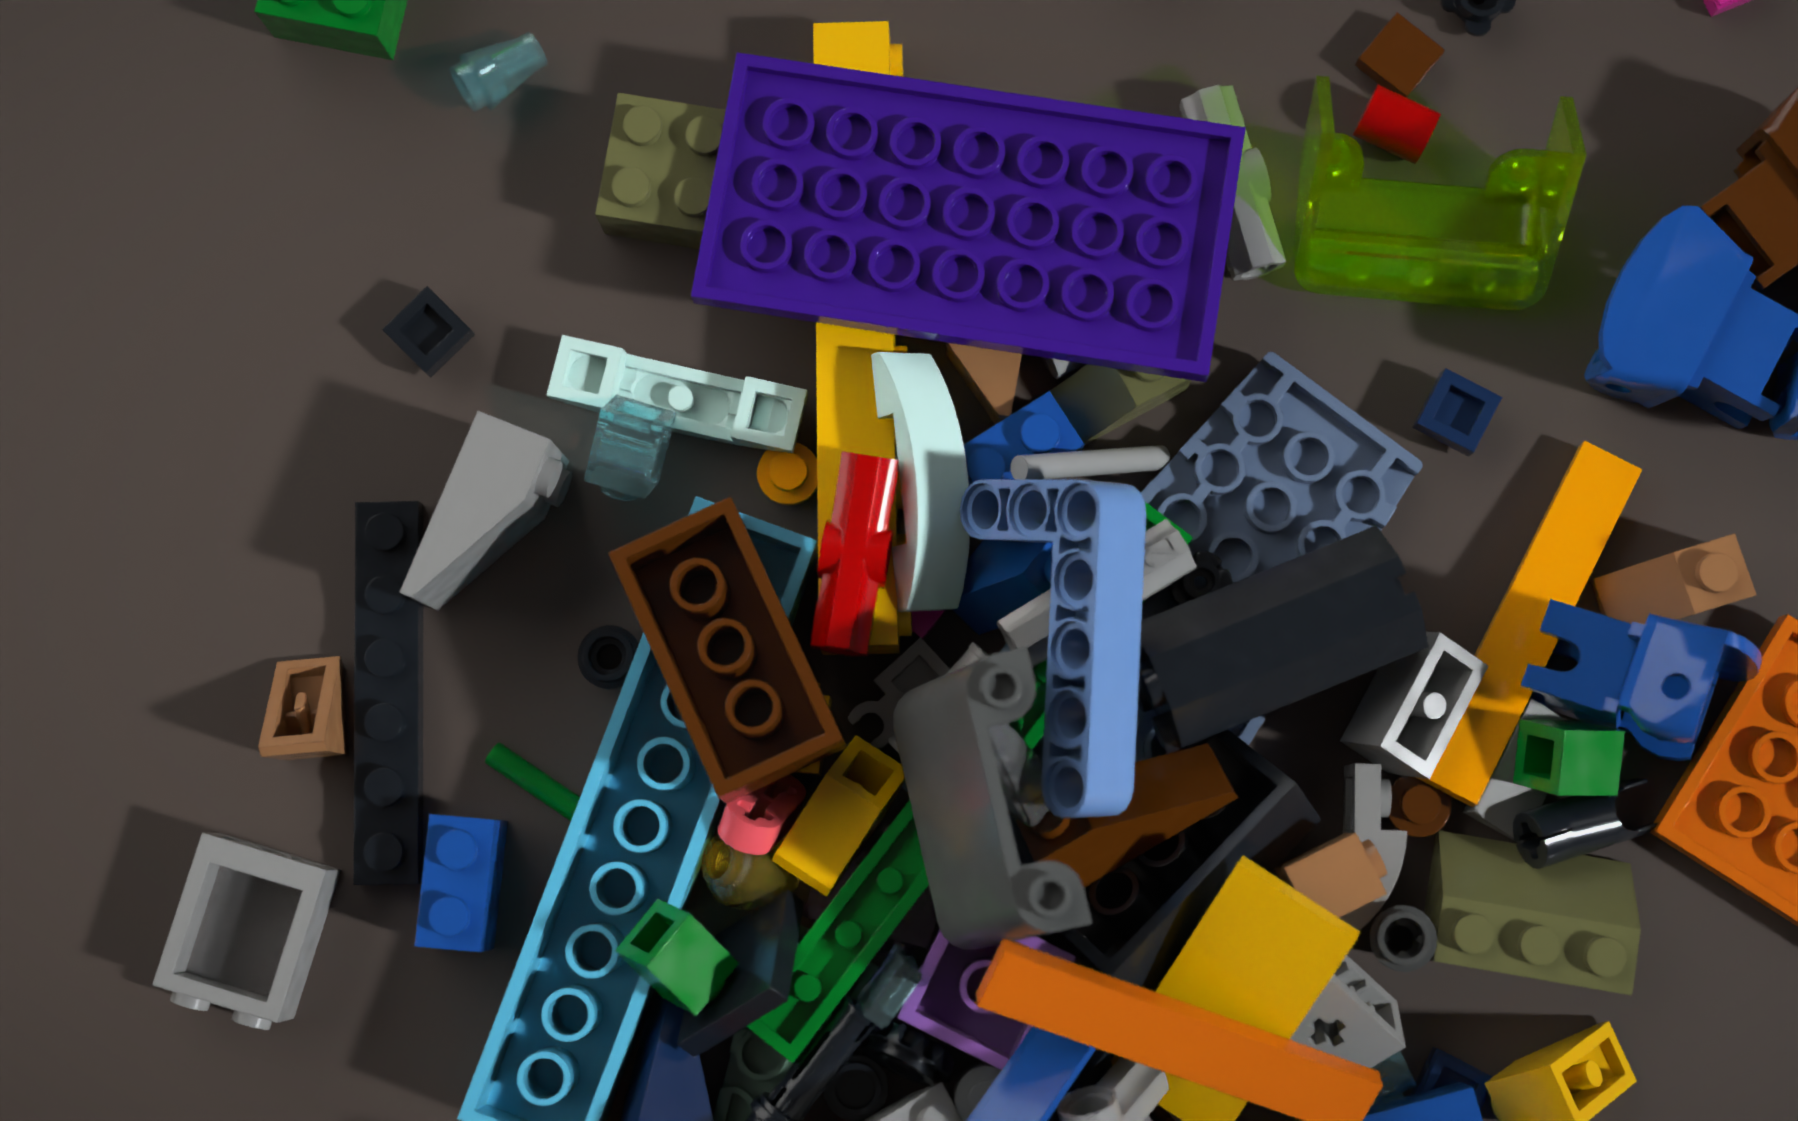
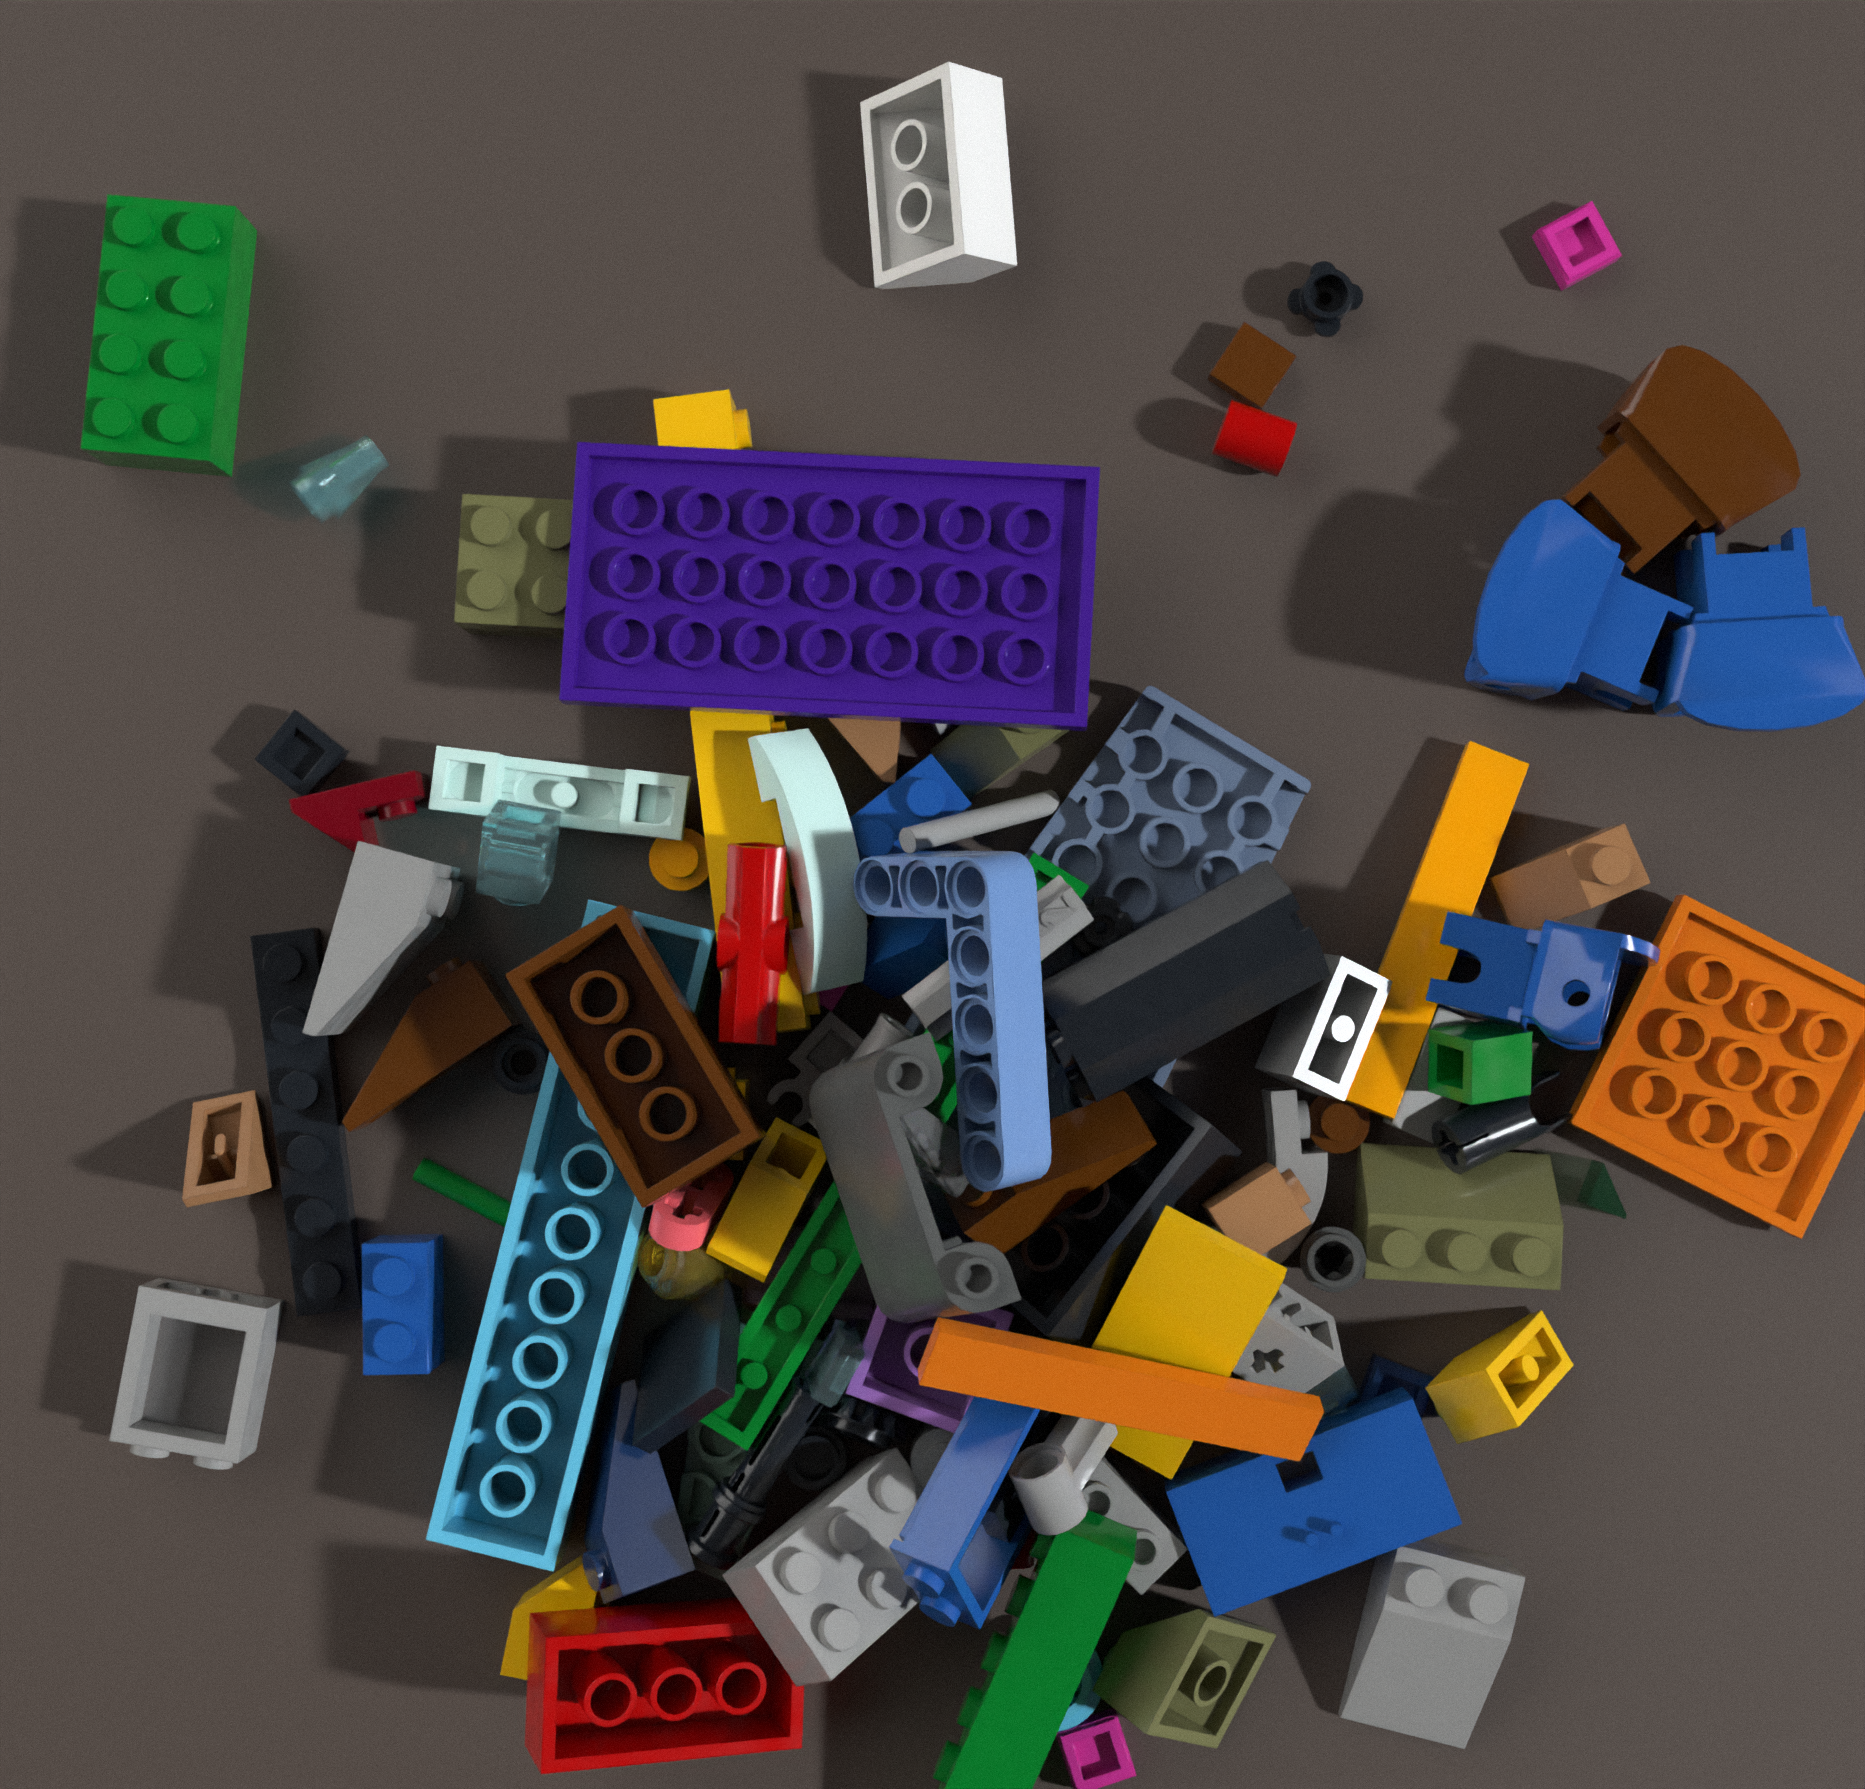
camera: 15 degrees left, 5 degrees up
(469, 386) = (348, 810): none -> dark red slope
(527, 619) = (438, 1033): none -> reddish brown slope
(677, 957) = (622, 1361): green brick -> none
(1253, 237) = (1119, 567): piece -> none
(1427, 238) = (1298, 550): clear neon green windscreen -> none
(1457, 412) = (1341, 726): dark blue plate -> none
(1679, 907) = (1600, 1192): none -> clear green piece

